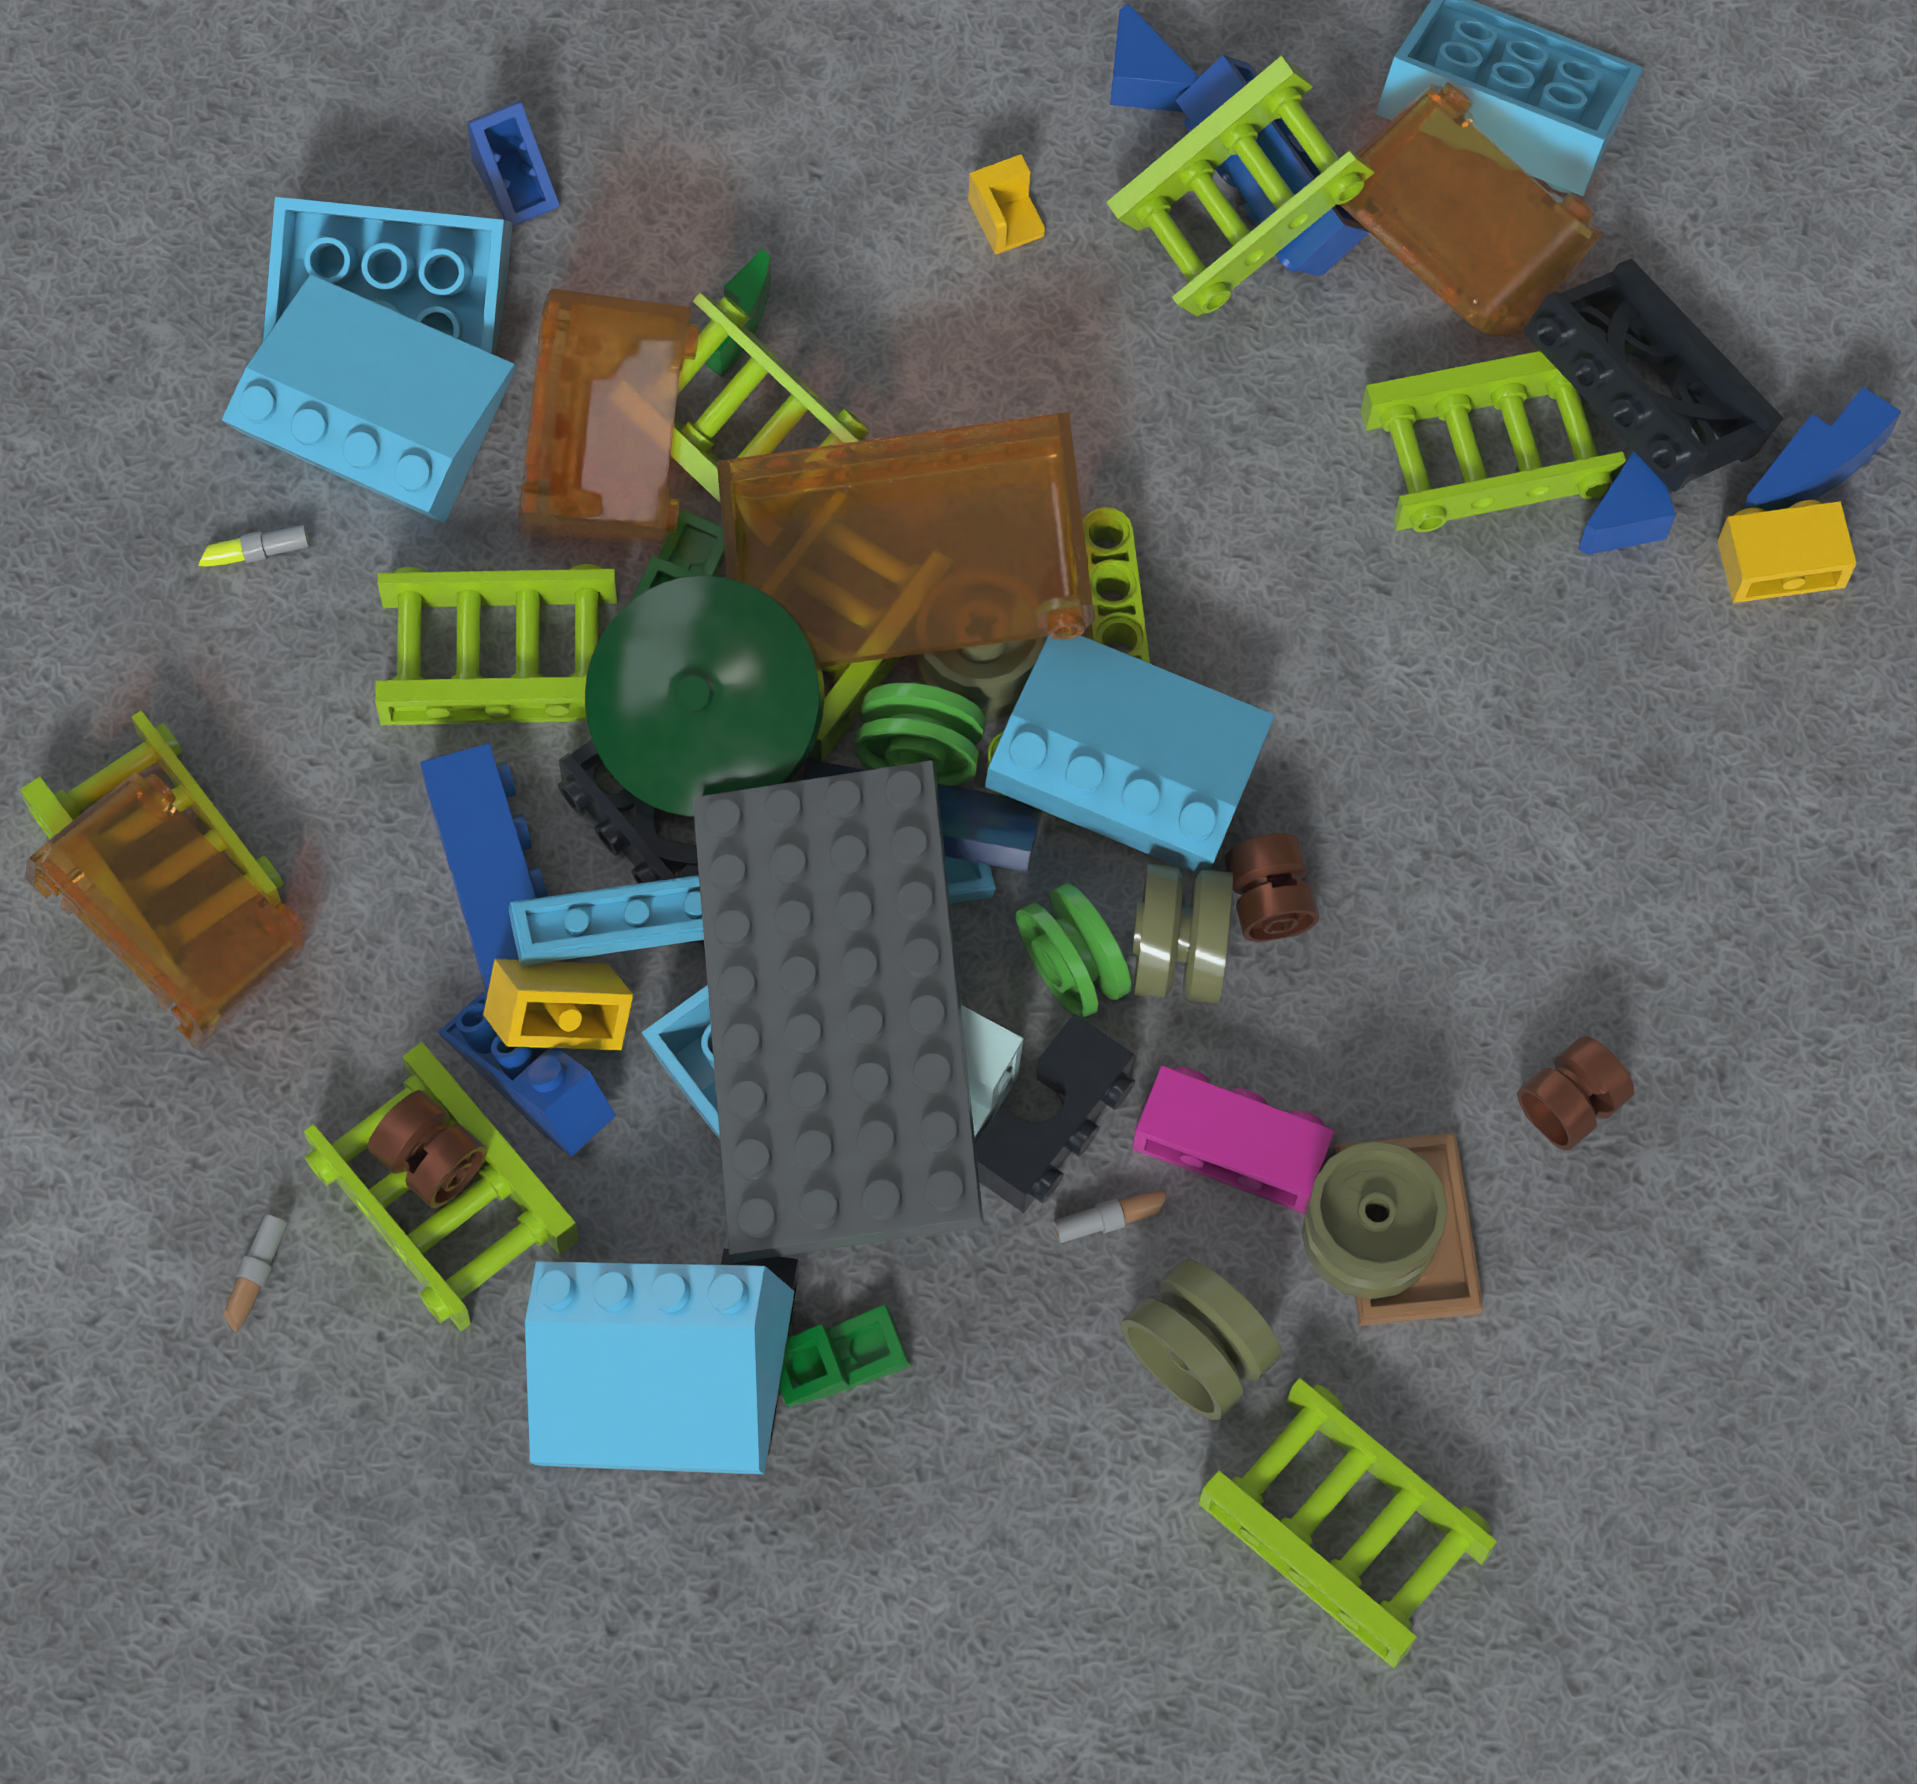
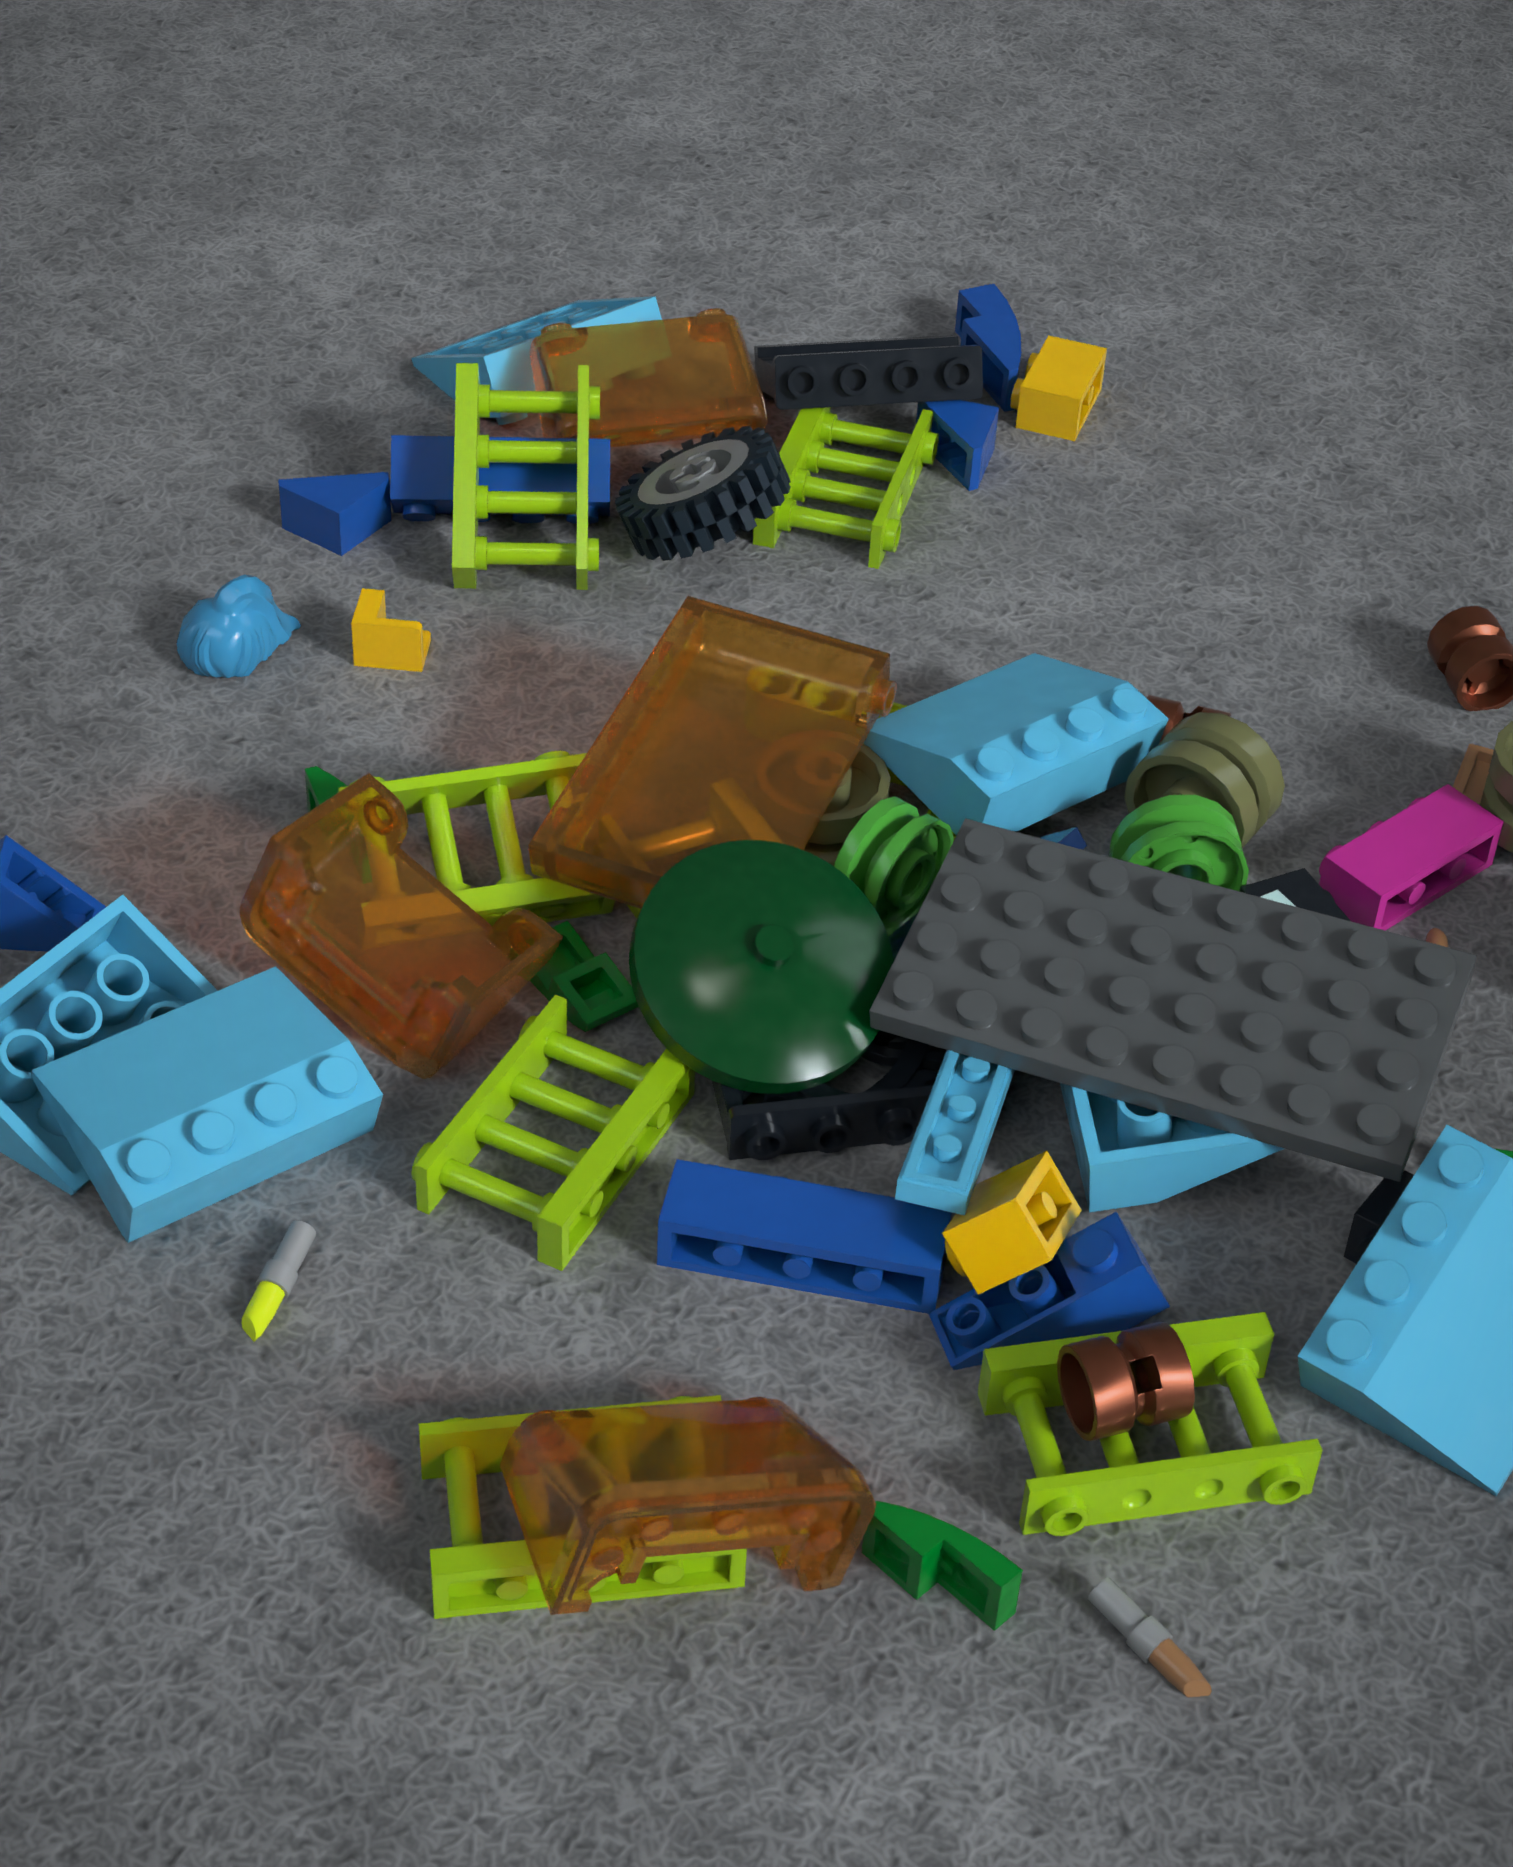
camera: 60 degrees left, 25 degrees down
(231, 1090) = (928, 1551): none -> green slope
(930, 94) = (233, 629): none -> dark azure hair
(1343, 338) = (703, 493): none -> black wheel

